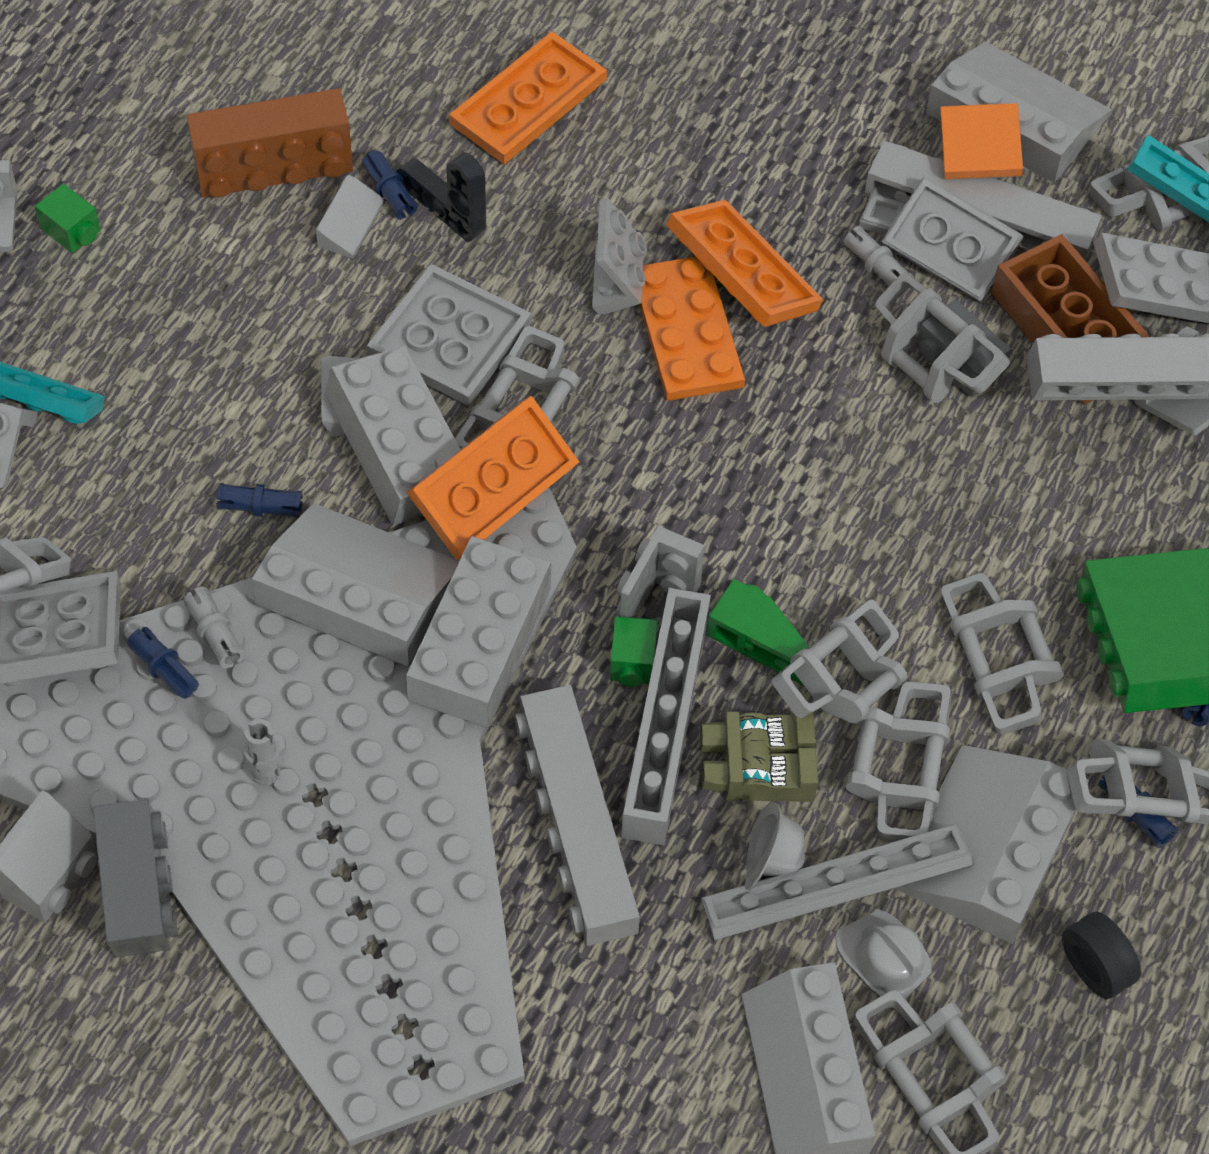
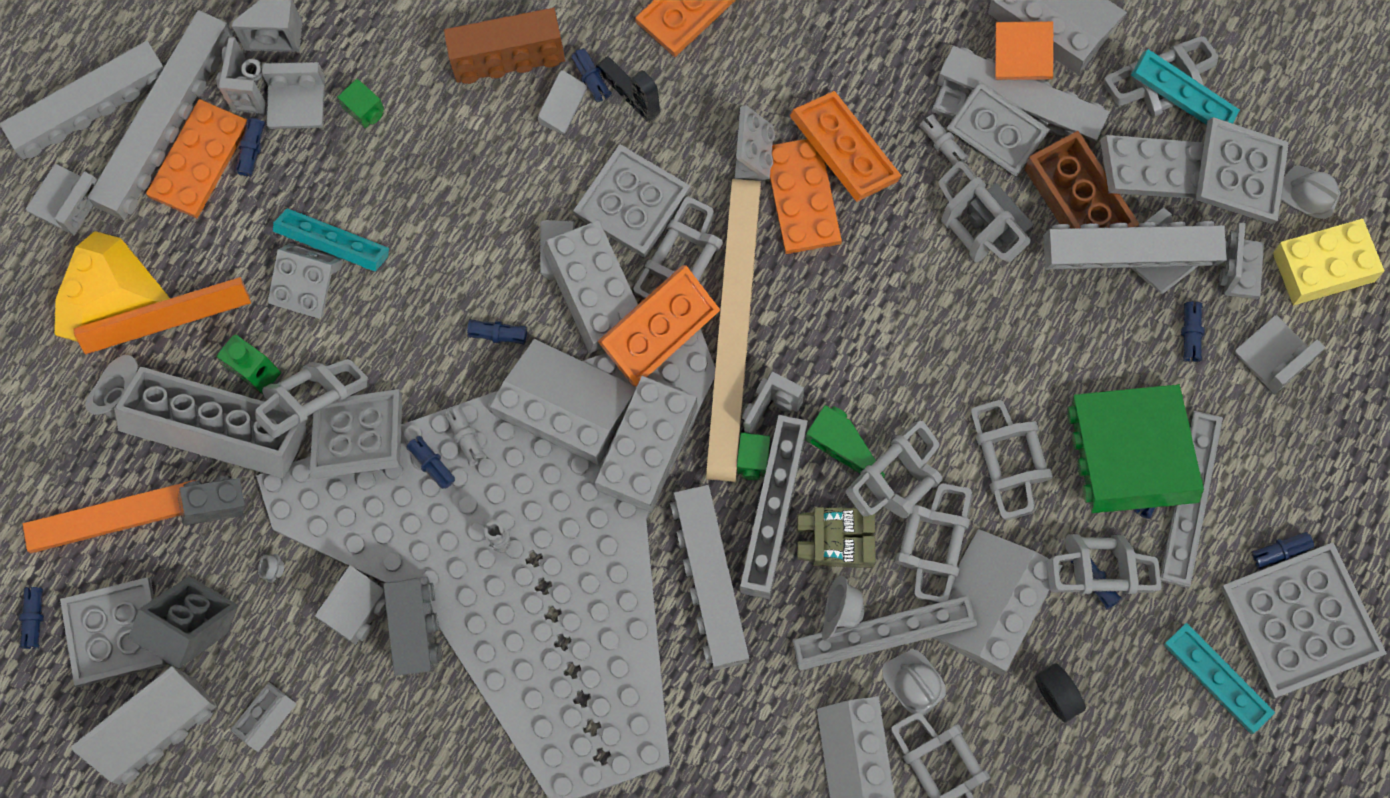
camera: 10 degrees right, 15 degrees up
(598, 498) = (733, 331): none -> tan beam

